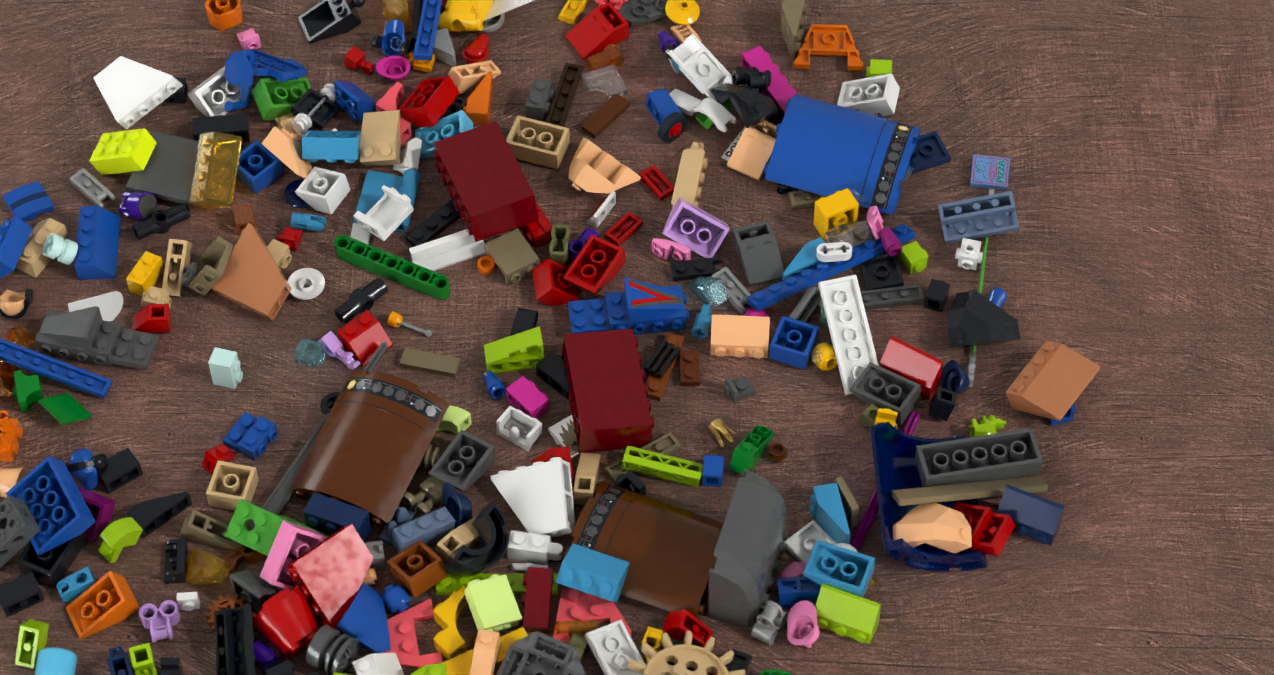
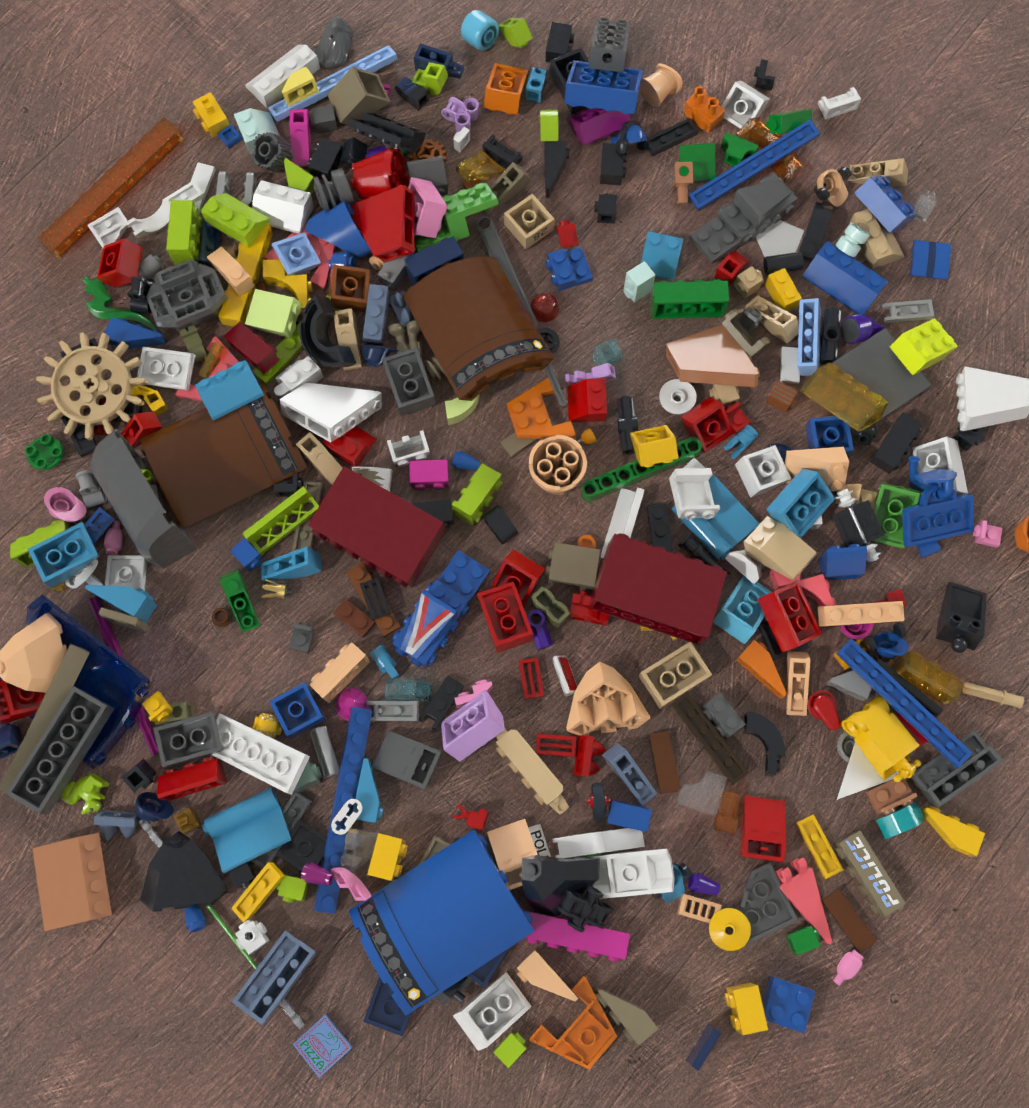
camera: 130 degrees right, 20 degrees up
(42, 448) = (671, 137): none -> black tile
(61, 284) = (816, 229): none -> black arch
(97, 403) = (682, 183): none -> nougat bracket
(116, 291) = (789, 261): none -> black pin
(167, 444) = (606, 208): none -> black brick
(177, 228) = (809, 336): none -> light blue brick
(182, 377) = (662, 254): none -> dark azure slope
(207, 234) = (789, 366): none -> white tile
(210, 322) = (689, 299): none -> green brick
(302, 427) = (545, 307): none -> clear red hair
(311, 252) = (708, 423): none -> red slope
(367, 259) = (654, 446): none -> yellow slope
(388, 61) = (861, 613): none -> light nougat brick
(417, 361) = (531, 417): none -> orange wing
(420, 633) = (296, 254): none -> light blue slope
(427, 192) = (697, 551): none -> black pin
(446, 301) = (557, 456): none -> light nougat cone
(531, 63) = (769, 736): none -> black arch
(633, 128) = (629, 773): none -> sand blue slope
(651, 156) = (587, 747): none -> red tile
(691, 433) = (292, 565): none -> dark azure slope
(757, 190) = (475, 819): none -> red piece
(817, 82) = (540, 974): none -> light nougat slope
(906, 309) = (247, 829): none -> dark azure door
(930, 270) = (258, 891): none -> yellow plate
(940, 352) = (187, 820): none -> pearl gold piece
(985, 397) = (109, 820): none -> sand blue tile

